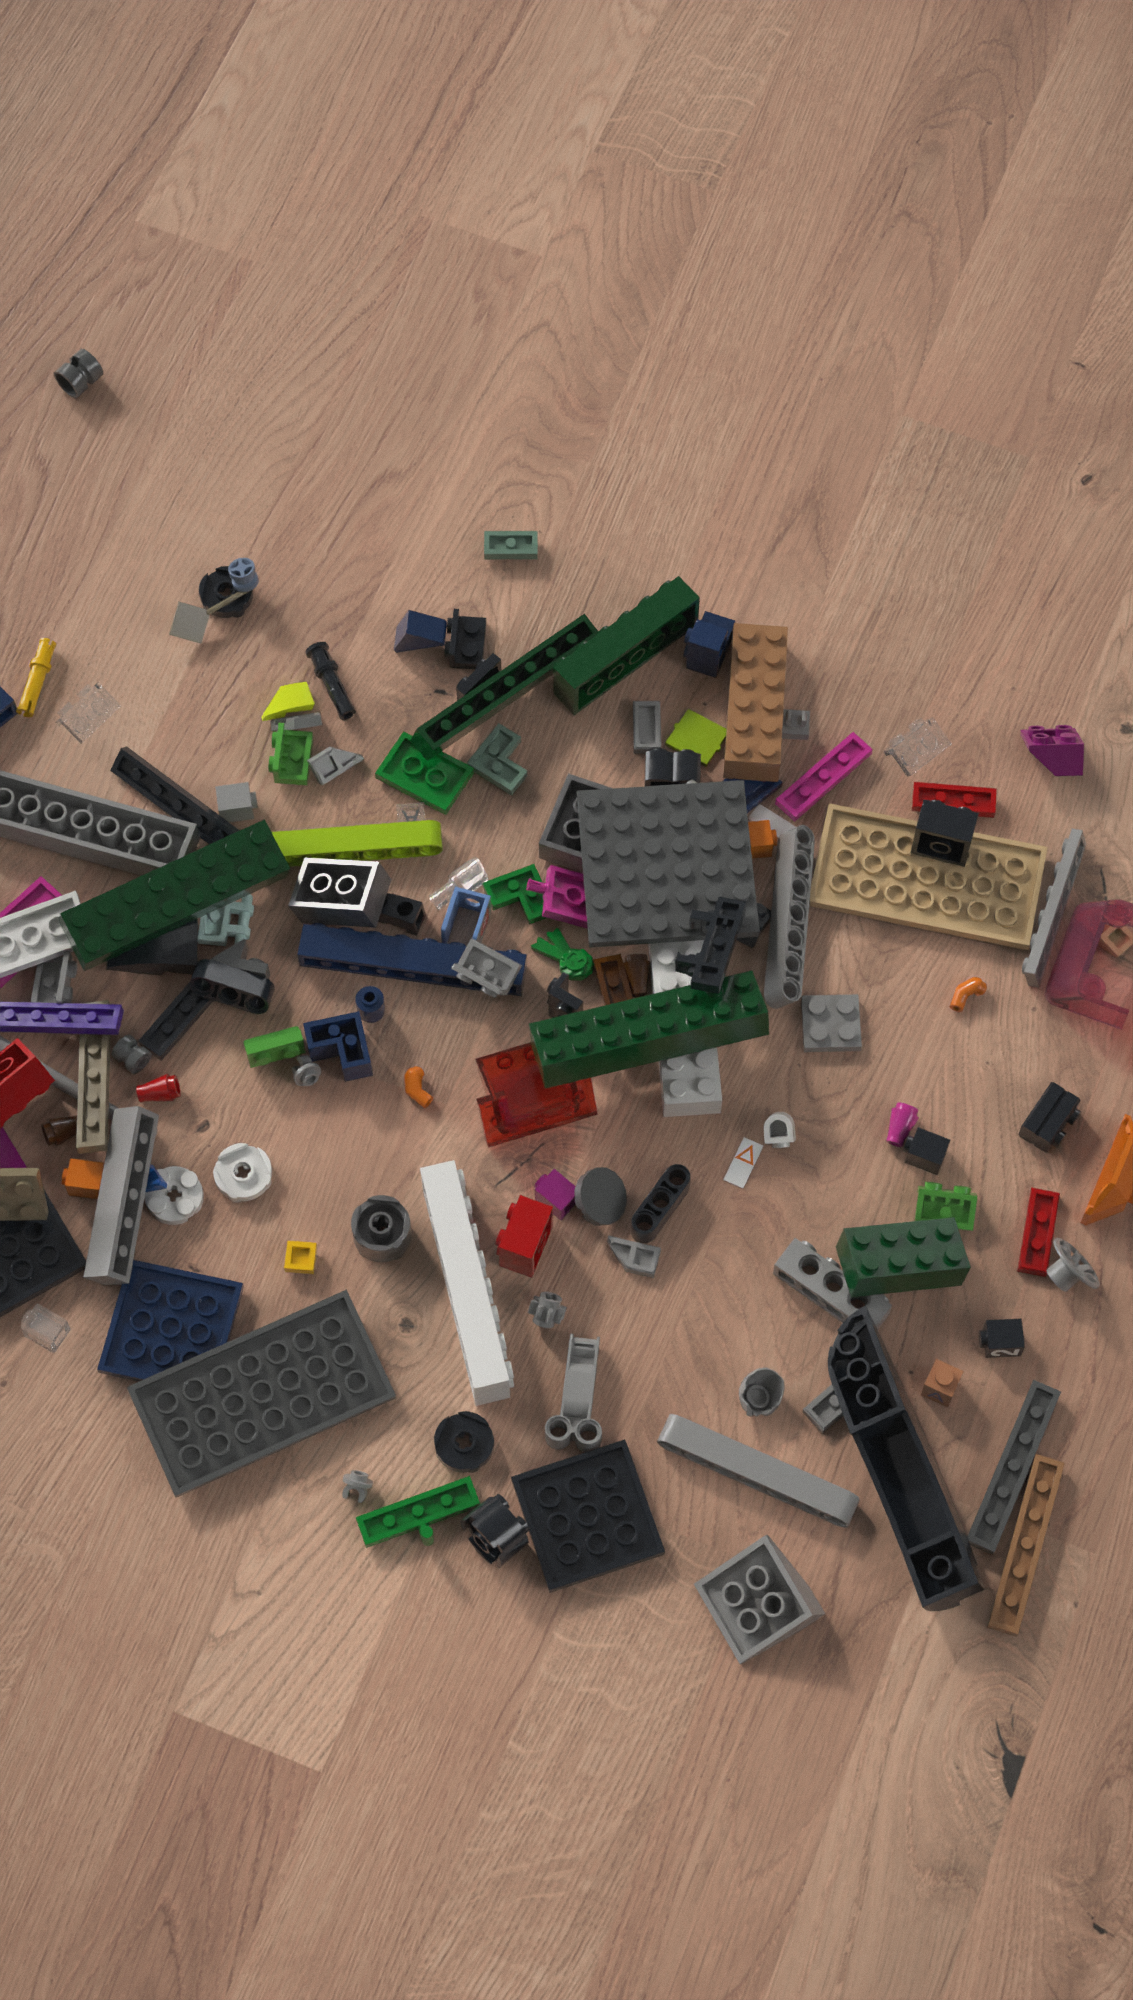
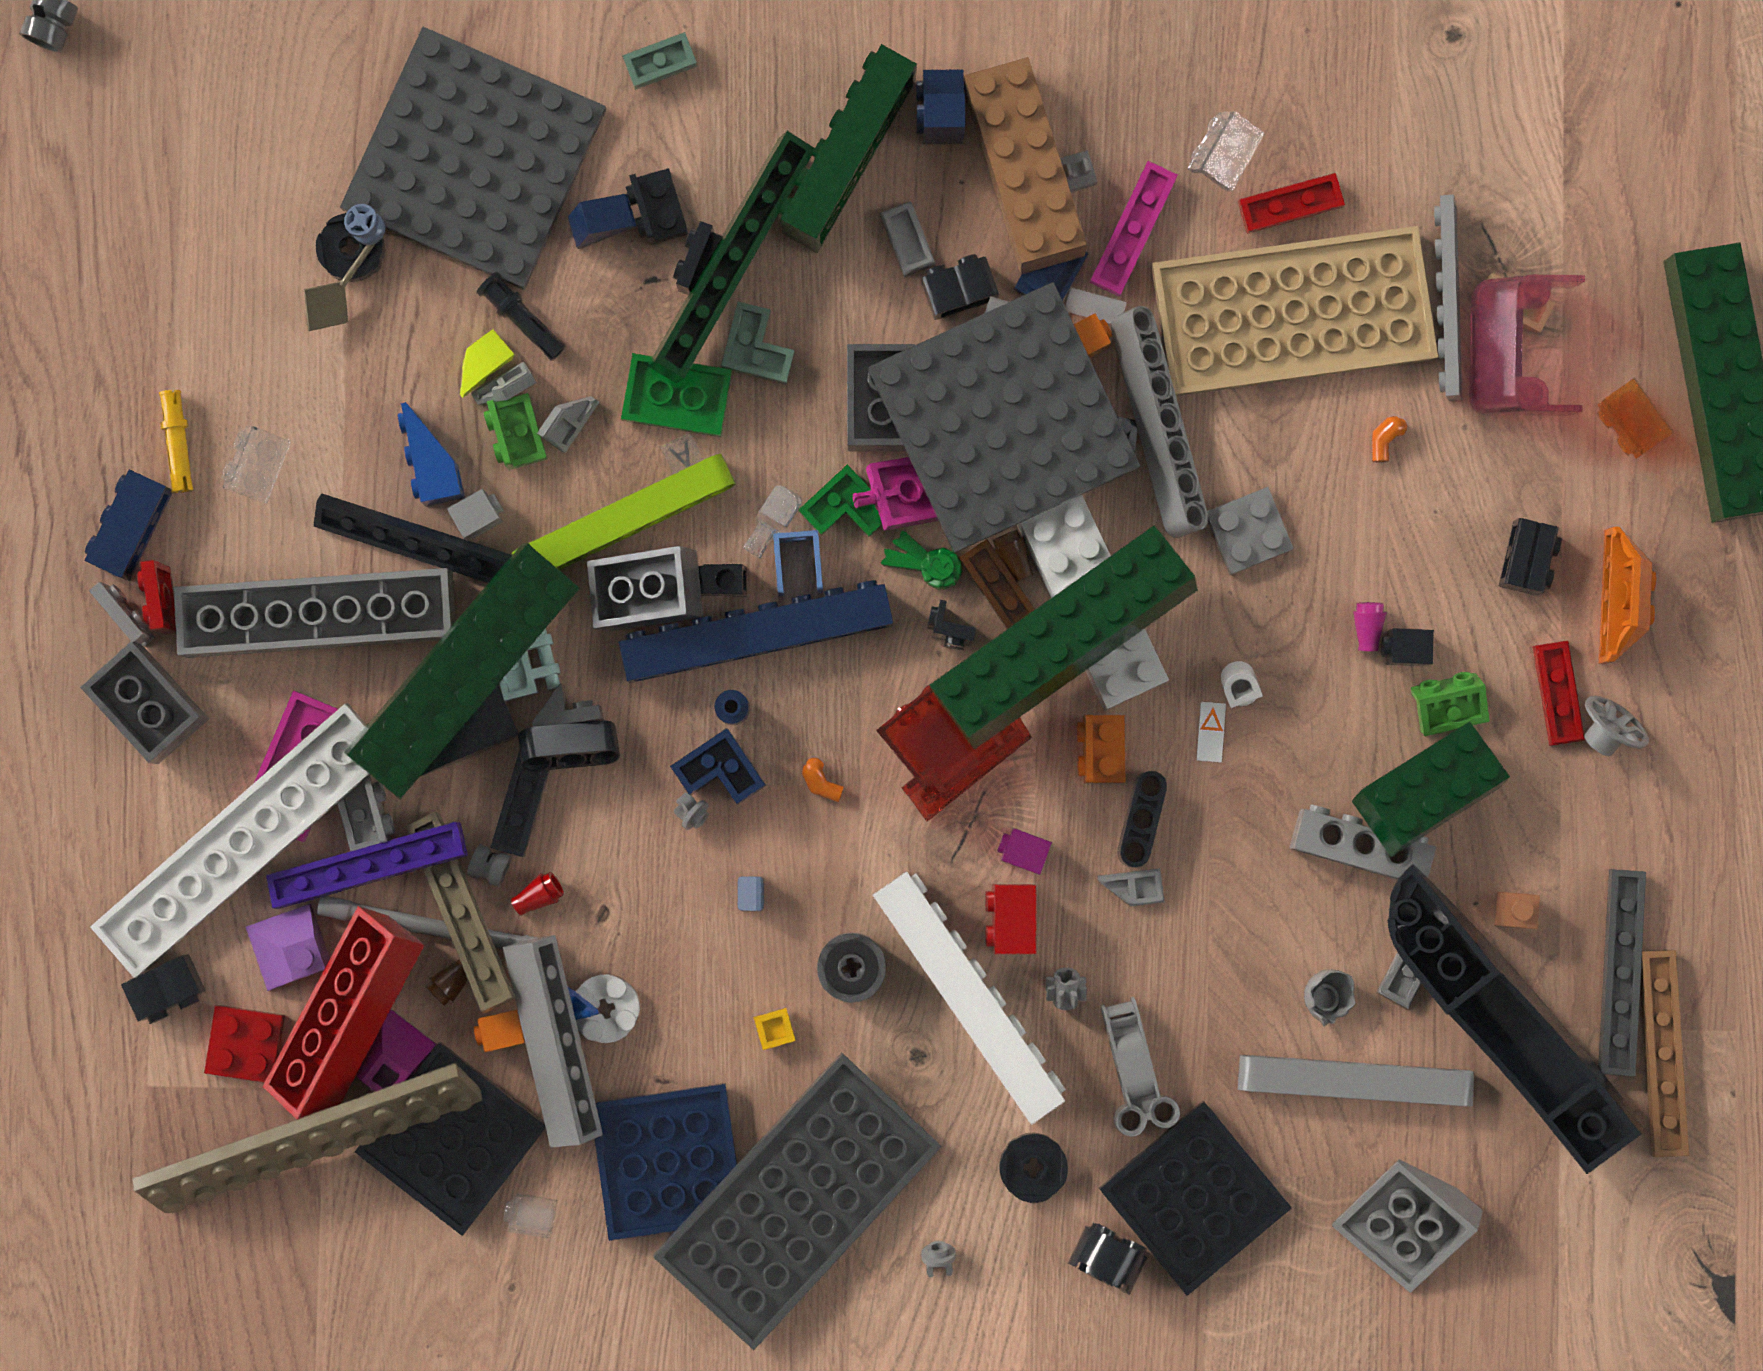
camera: 25 degrees left, 20 degrees up
(218, 760) = (435, 470): none -> blue slope
(240, 1188) = (670, 935): white plate -> none
(274, 1046) = (643, 794): bright green bracket -> none
(327, 1150) = (751, 893): none -> sand blue slope
(346, 565) = (474, 157): none -> dark grey plate
(418, 1513) = (1016, 1264): green plate -> none
(487, 968) = (849, 624): light grey bracket -> none
(601, 1196) = (1075, 838): dark grey tile -> none
(650, 1142) = (1103, 748): none -> orange bracket
(697, 734) = (969, 229): lime piece -> none
(721, 932) = (1108, 539): black hinge -> none
(944, 832) = (1303, 260): black brick -> none
(1002, 1338) = (1563, 833): black brick -> none
(1057, 749) = (1386, 96): magenta slope -> none

